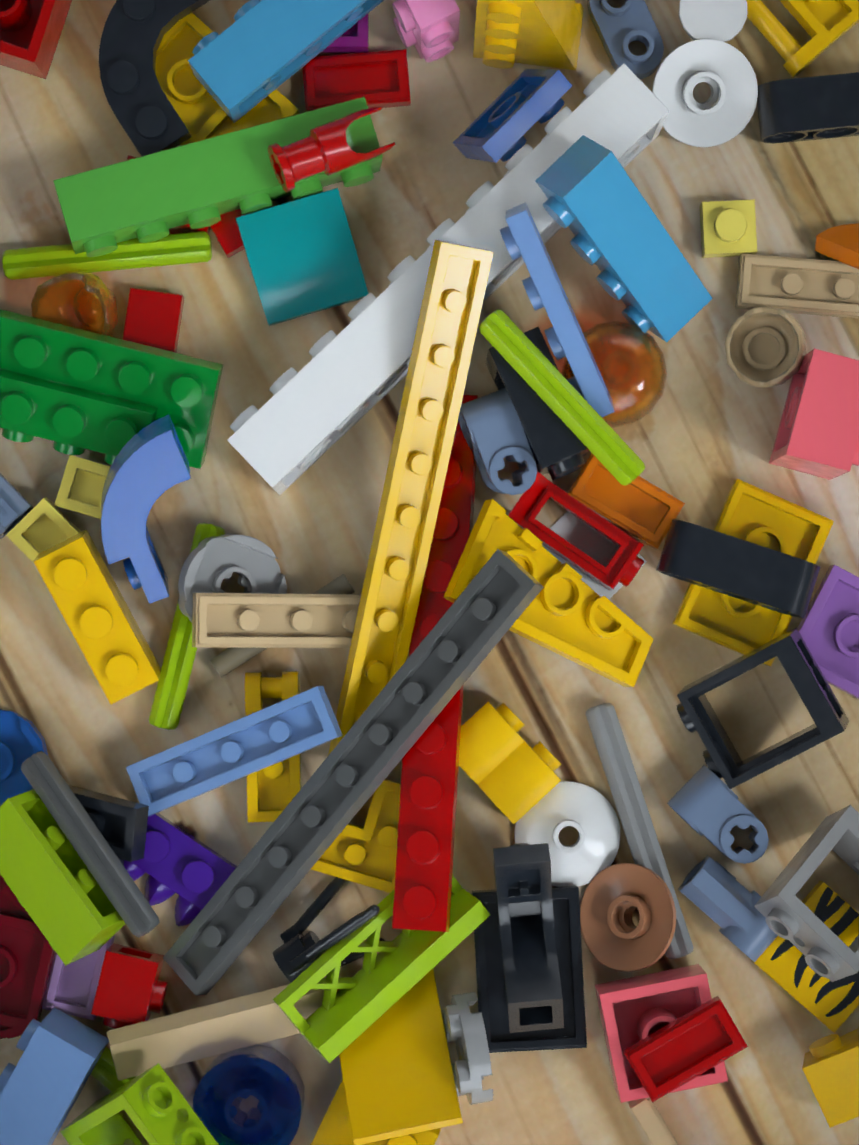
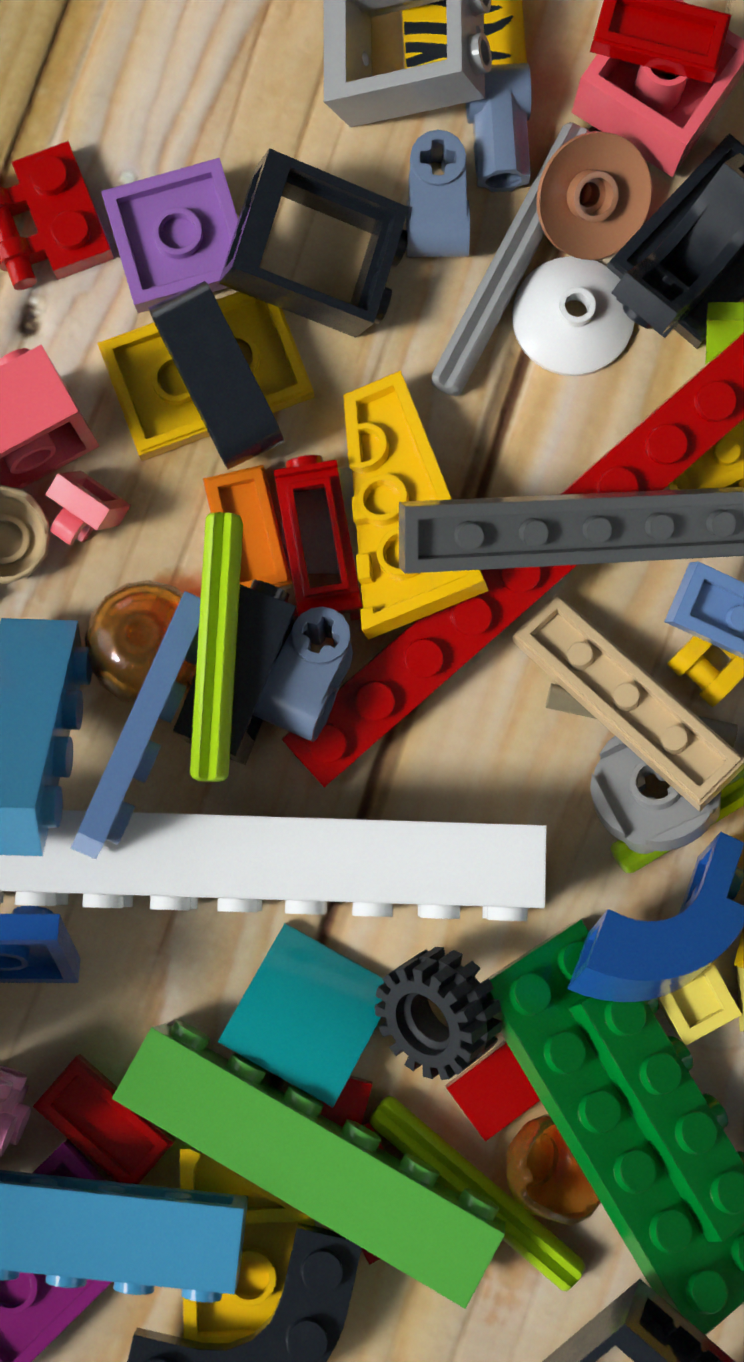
camera: 135 degrees left, 5 degrees down
(228, 329) = (458, 997): none -> black tyre
(322, 151) = (200, 1085): red piece -> none
(415, 474) = (405, 715): yellow plate -> none
(504, 762) = (570, 415): yellow brick -> none
(736, 416) = (85, 506): none -> coral tile

